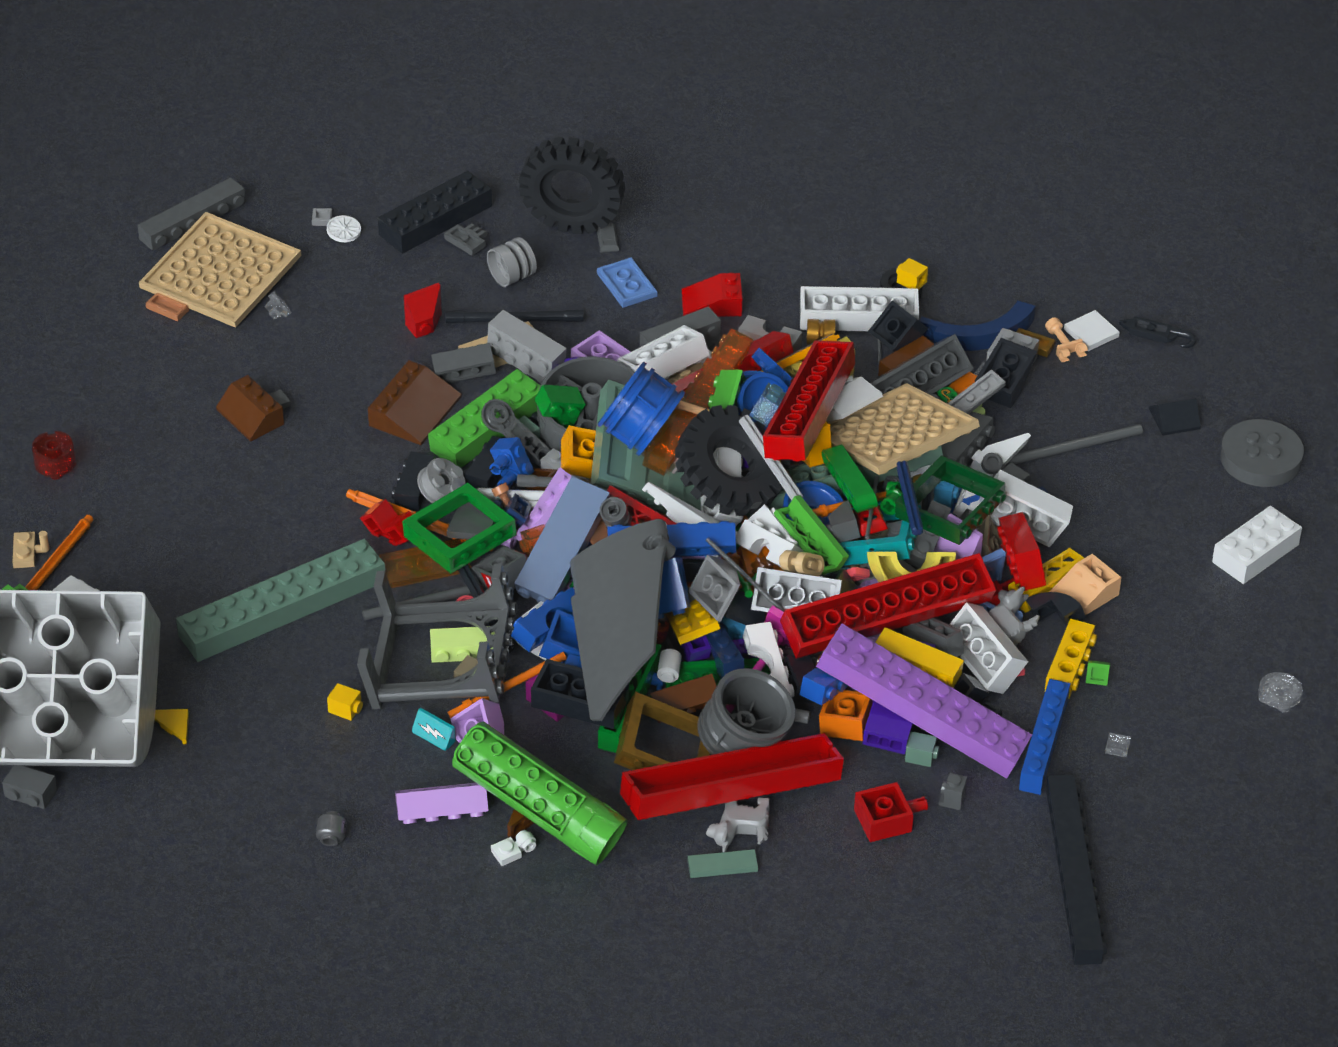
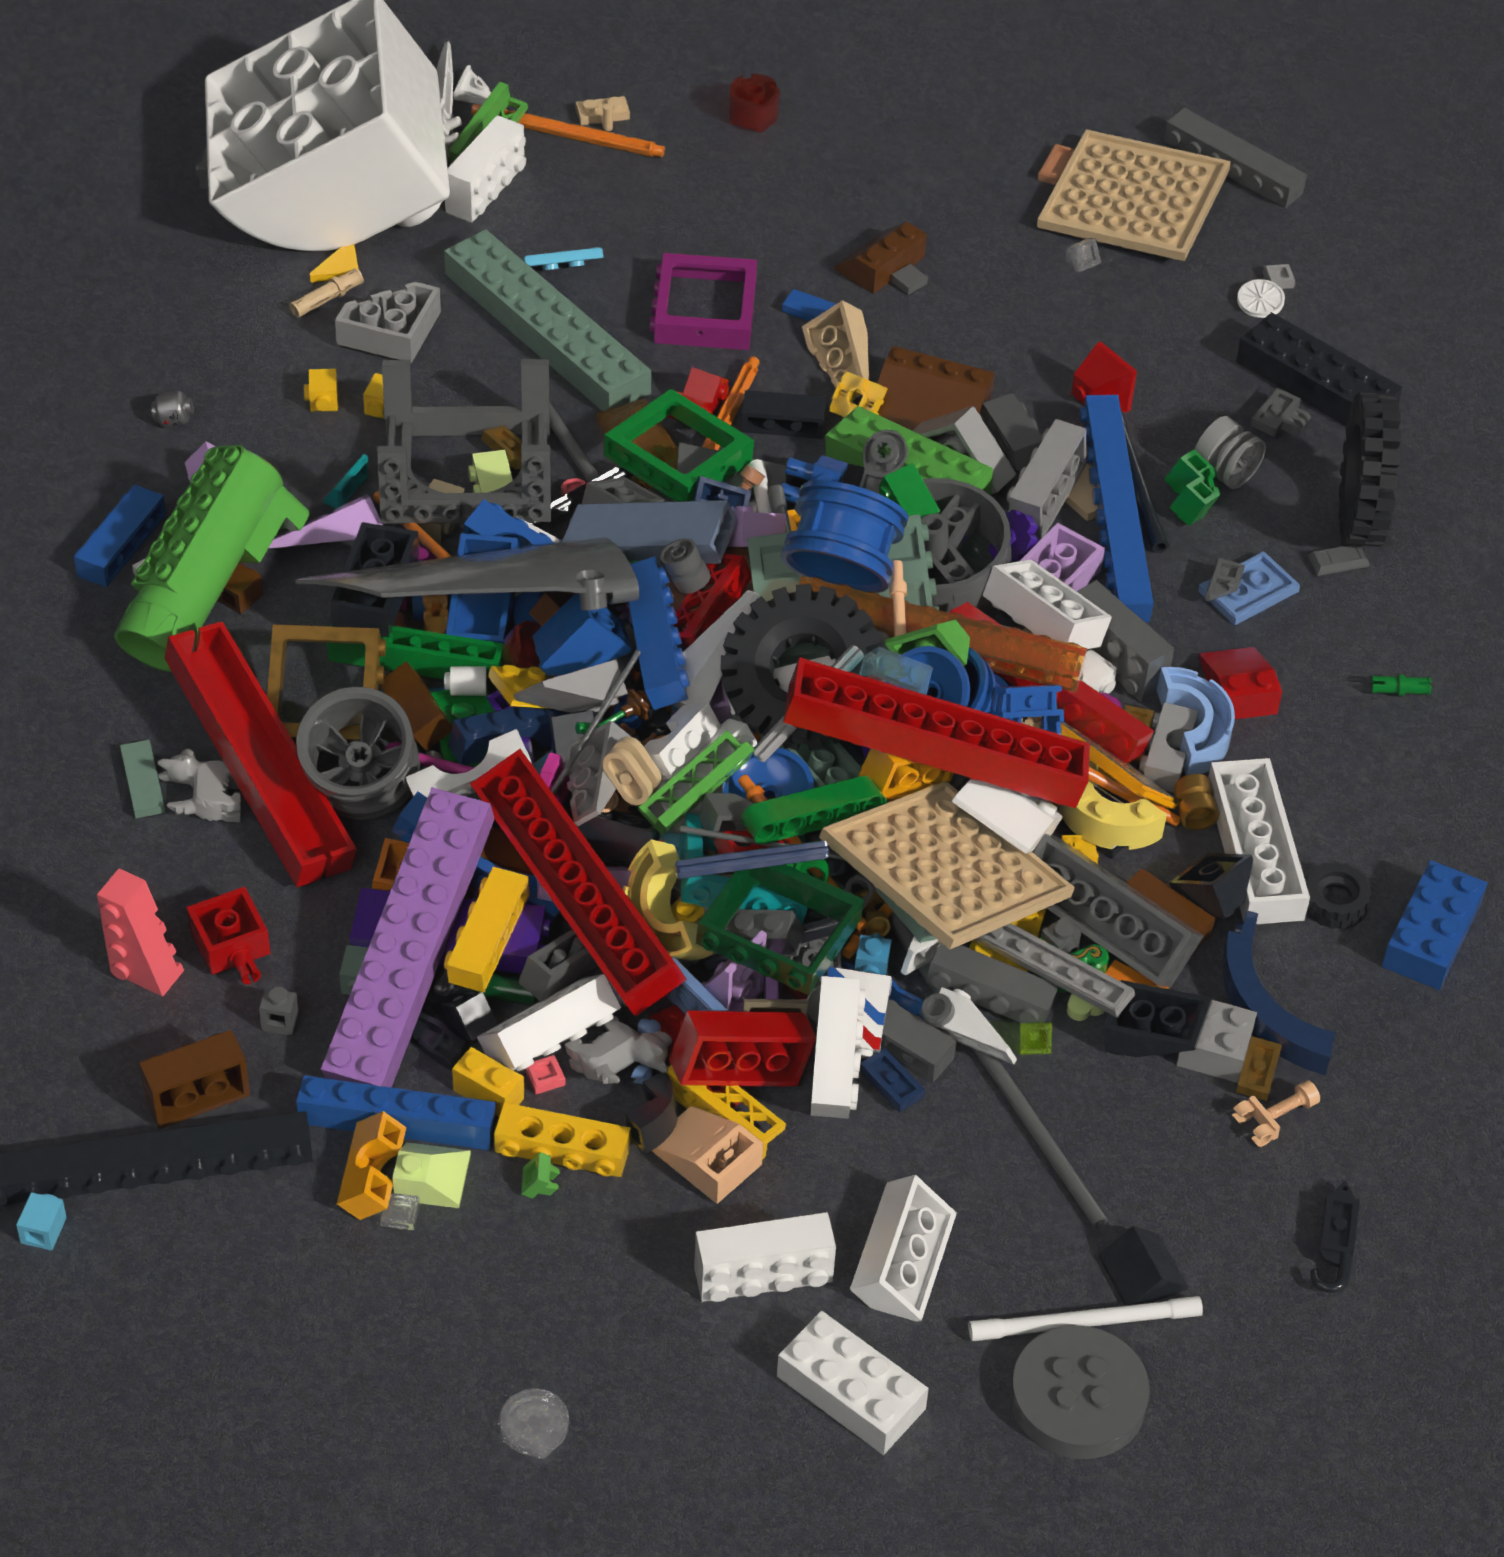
camera: 80 degrees right, 5 degrees up
(206, 724) = (334, 288): none -> tan pin
(207, 582) = (574, 258): none -> medium azure plate
(265, 686) = (390, 321): none -> light grey brick
(277, 533) = (715, 332): none -> magenta piece
(296, 456) = (805, 305): none -> blue tile
(329, 736) = (322, 390): none -> yellow brick
(349, 443) = (839, 342): none -> tan wedge
(414, 427) = (856, 385): none -> yellow piece
(414, 634) = (503, 439): none -> pearl gold plate
(439, 479) = (783, 415): light grey wheel -> none
(469, 865) = (120, 535): none -> blue brick
(475, 381) = (969, 435): none -> light grey brick
(547, 287) = (1194, 483): none -> green brick
(555, 324) = (1116, 504): none -> blue brick
(624, 288) = (1224, 579): none -> dark grey tile
(728, 228) = (1401, 685): none -> green pin
(758, 306) = (1214, 720): none -> light blue brick
(900, 847) = (135, 934): none -> coral wedge
(912, 274) = (1342, 890): yellow brick -> none
(933, 247) = (1434, 925): none -> blue brick
(1001, 432) = (1036, 1038): none -> clear neon green slope
(1016, 832) = (195, 1078): none -> reddish brown brick
(1023, 689) = (488, 1080): none -> yellow brick
(1069, 747) = (363, 1186): none -> light orange arch
(1087, 729) = (431, 1173): none -> yellowish green slope
(1092, 329) = (1317, 1149): white tile -> none
(1121, 923) = (41, 1221): none -> medium azure brick
(1159, 512) = (903, 1249): none -> white slope
(1173, 567) = (764, 1257): none -> white brick
(1215, 480) = (998, 1328): none -> white piece

